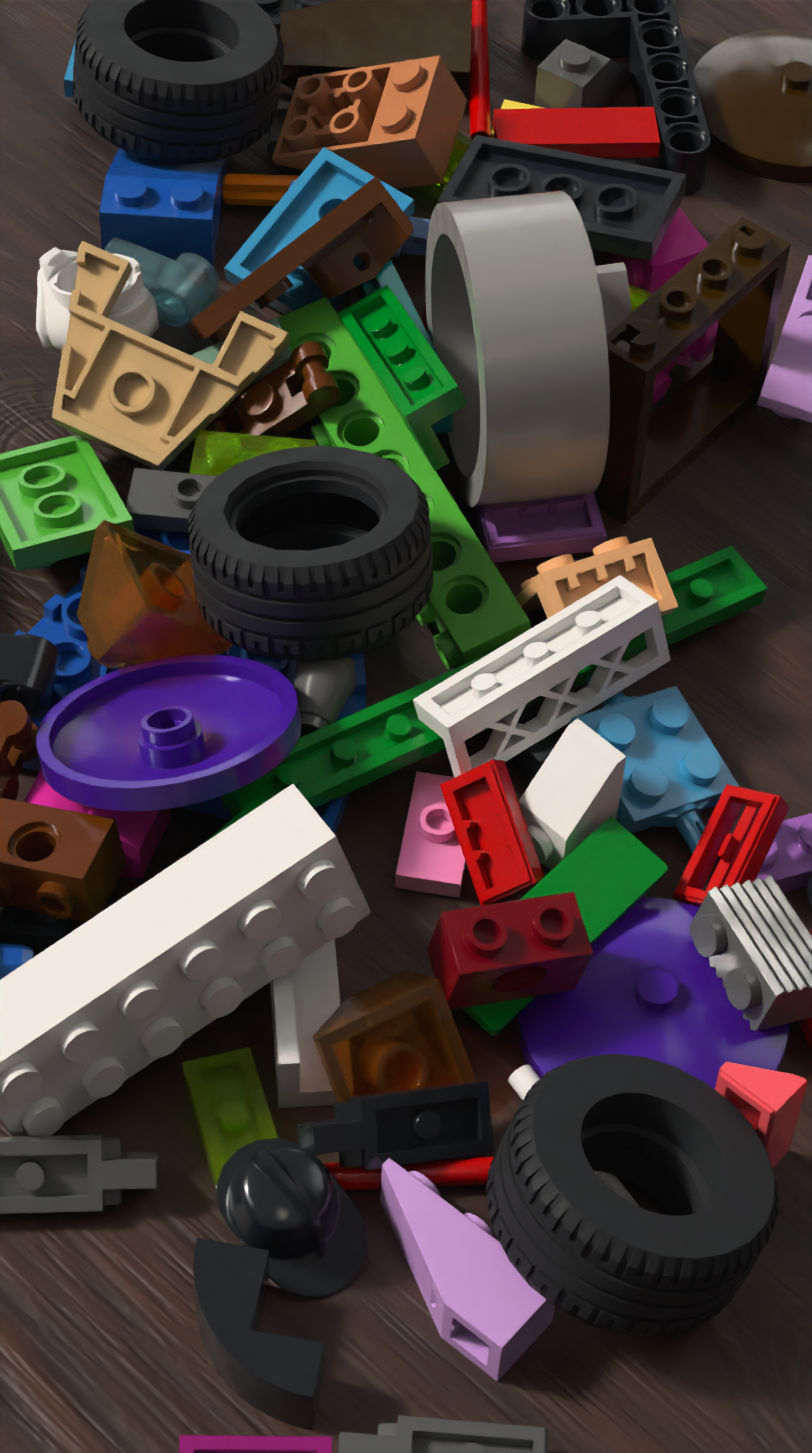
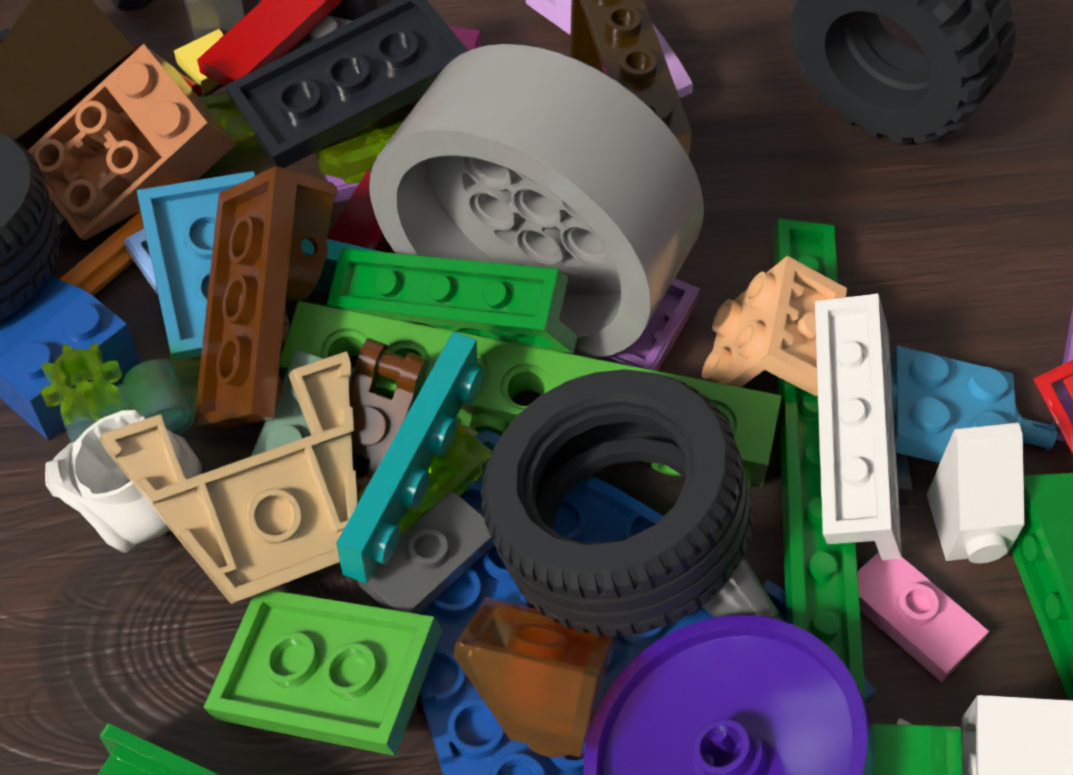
camera: 50 degrees left, 5 degrees up
(134, 224) = (75, 368): none -> clear neon green gear
(242, 423) = (403, 472): none -> teal plate
(492, 832) = (970, 571): red plate -> none

